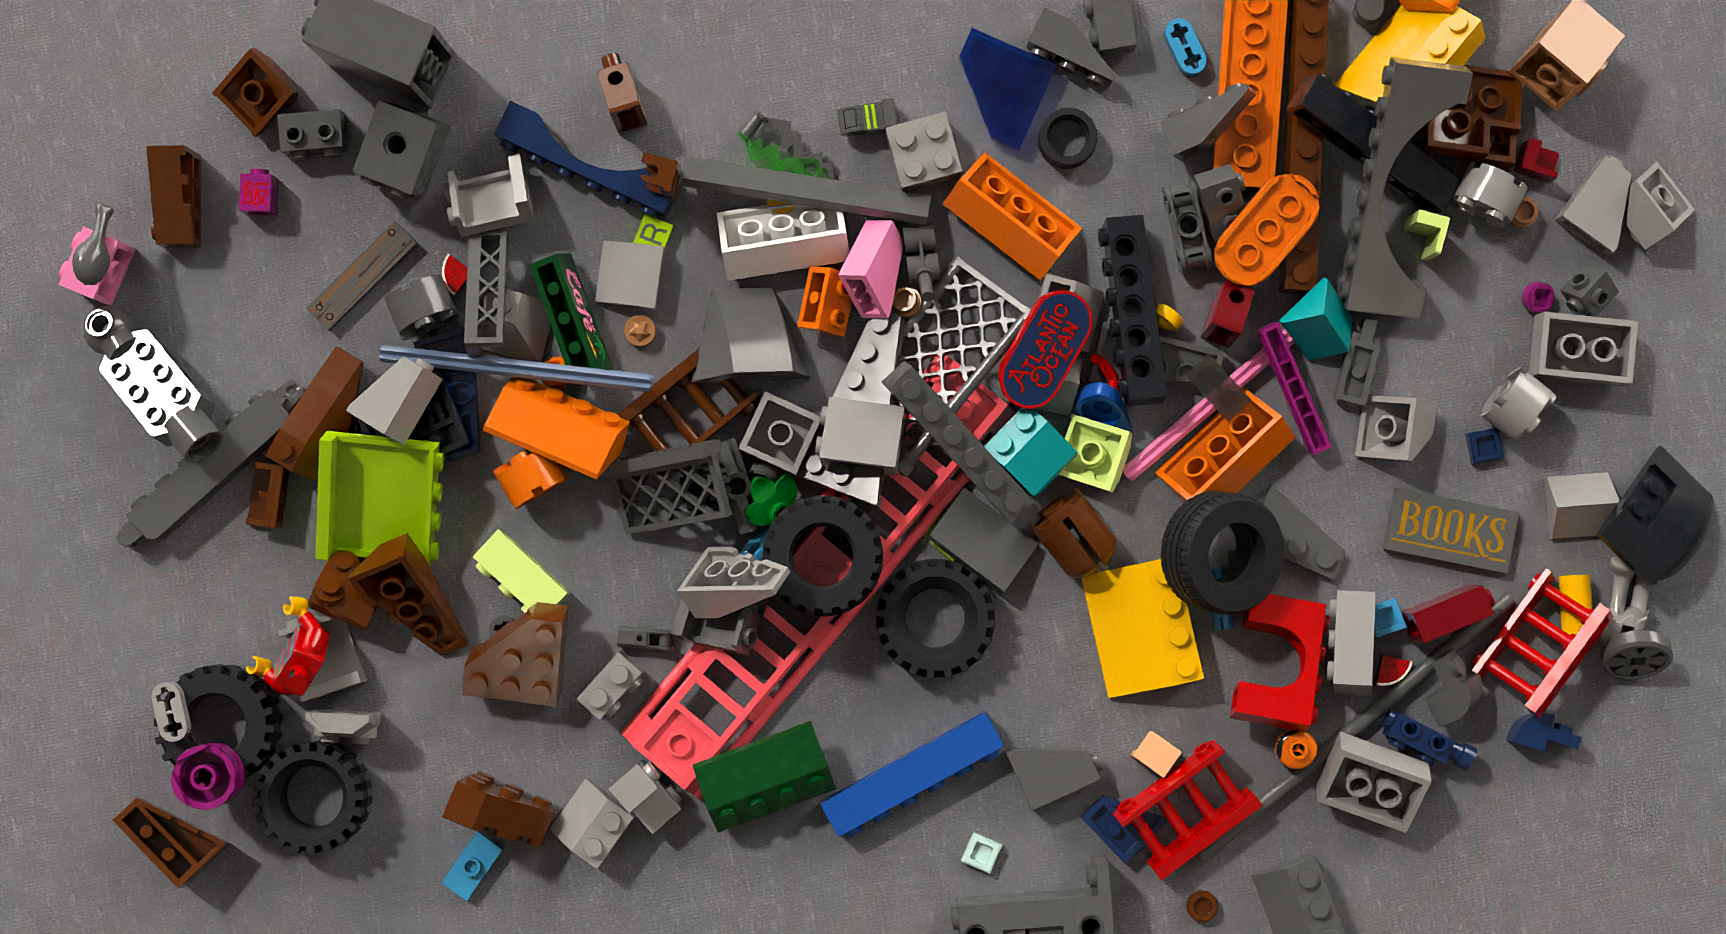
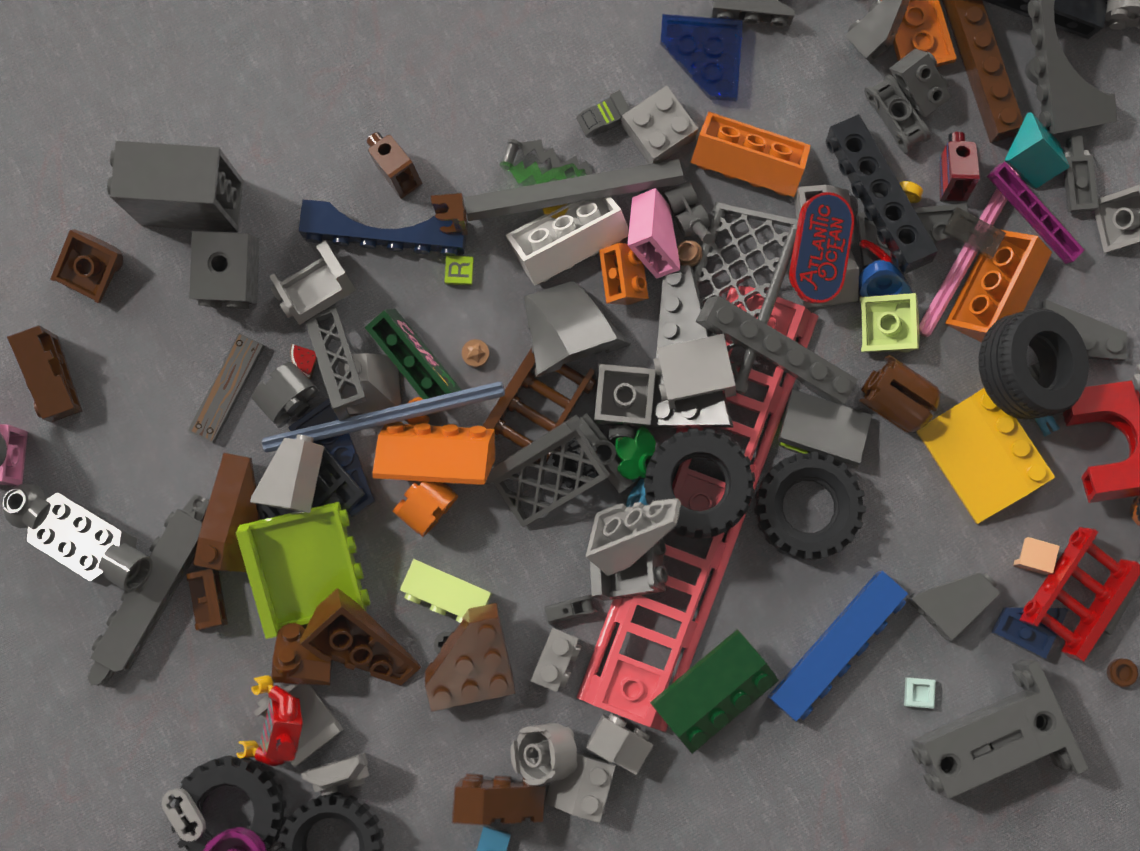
camera: 15 degrees left, 5 degrees down
(258, 193) = (116, 348): magenta brick -> none
(312, 134) = (146, 284): dark grey brick -> none
(565, 778) = (544, 753): none -> light grey brick
(629, 274) = (450, 309): light grey slope -> none
(1031, 450) = (839, 336): teal slope -> none
(1084, 121) = (774, 56): black tyre -> none
(1267, 229) = (967, 89): orange tile -> none
(1429, 225) = (1099, 45): yellowish green panel -> none

